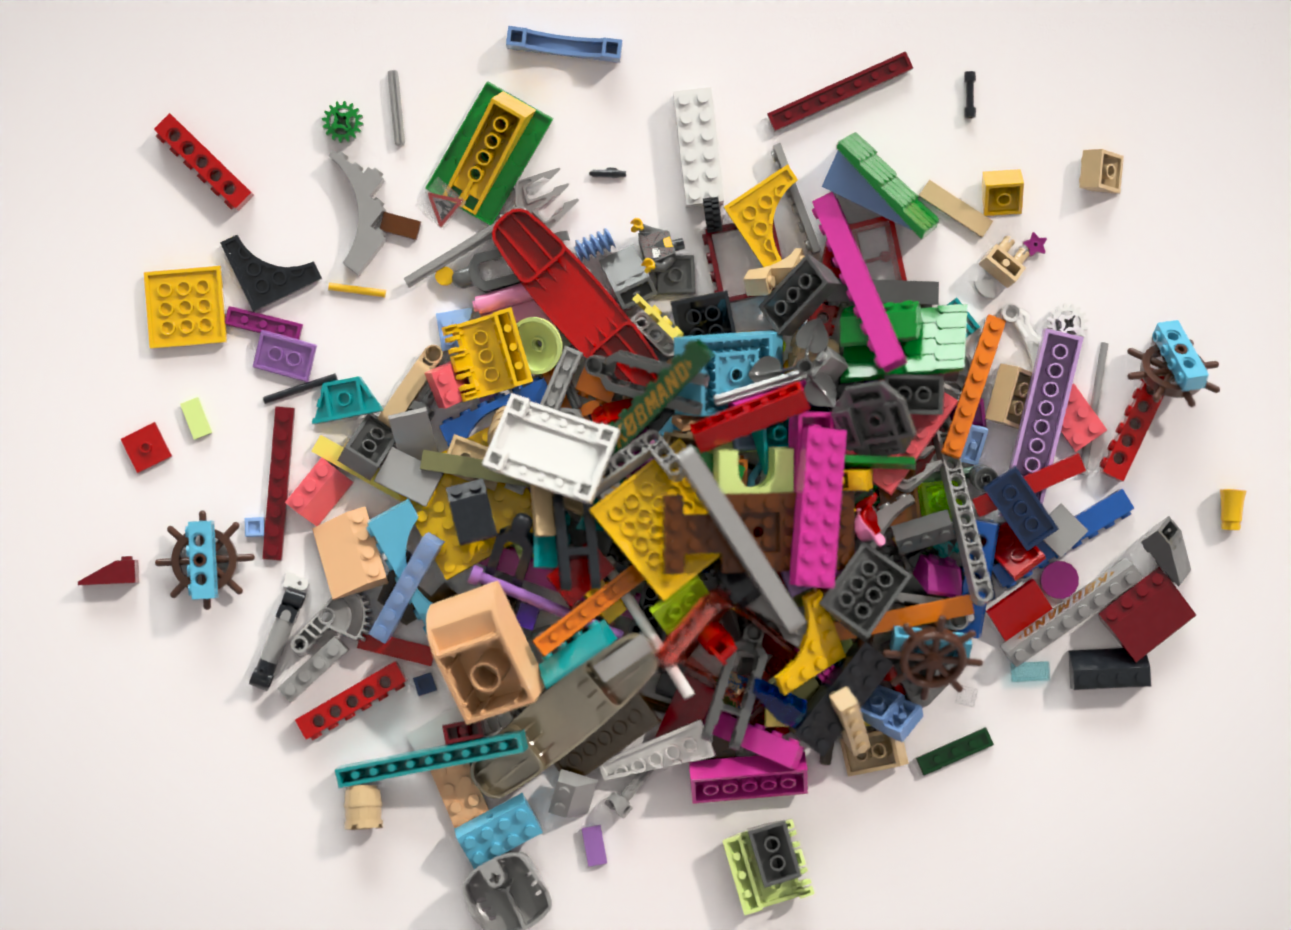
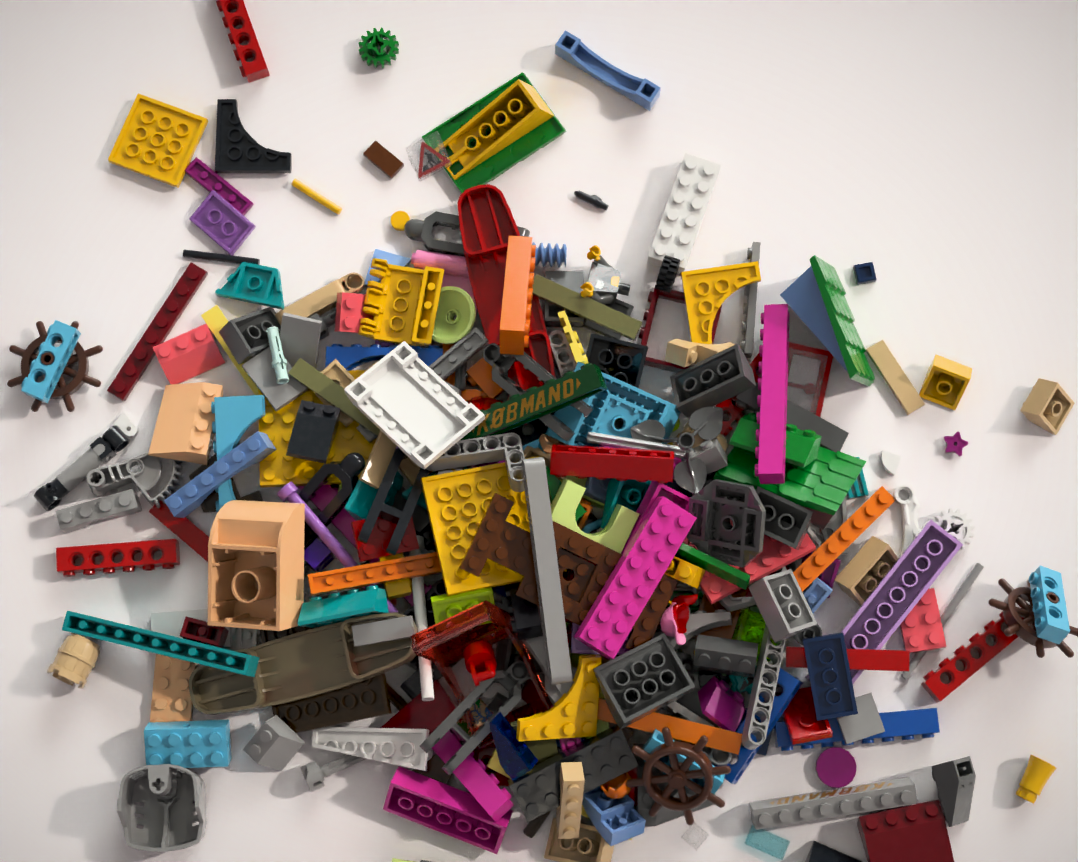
camera: 30 degrees right, 10 degrees down
(146, 447) = (58, 244): red plate -> none
(196, 418) = (116, 240): yellowish green tile -> none
(254, 526) = (115, 359): light blue tile -> none
(367, 239) = (349, 155): light grey arch -> none
(396, 107) = (432, 58): light grey axle -> none
(401, 456) = (279, 363): none -> light aqua pin
(425, 684) = (193, 575): dark blue tile -> none
(521, 201) = (502, 184): light grey piece -> none
(592, 303) = (517, 295): none -> orange brick
(594, 845) = (271, 805): medium lavender tile -> none
(653, 280) = (586, 307): none -> olive tile
(840, 91) = (837, 224): dark red plate -> none
(884, 690) = (616, 787): none -> orange hair
(885, 124) = (864, 273): none -> dark blue tile
(953, 468) = (782, 605): none -> light grey slope
(969, 79) = (961, 268): black bar -> none
(1002, 264) = (916, 447): tan brick -> none
(1019, 609) = (783, 776): red tile -> none

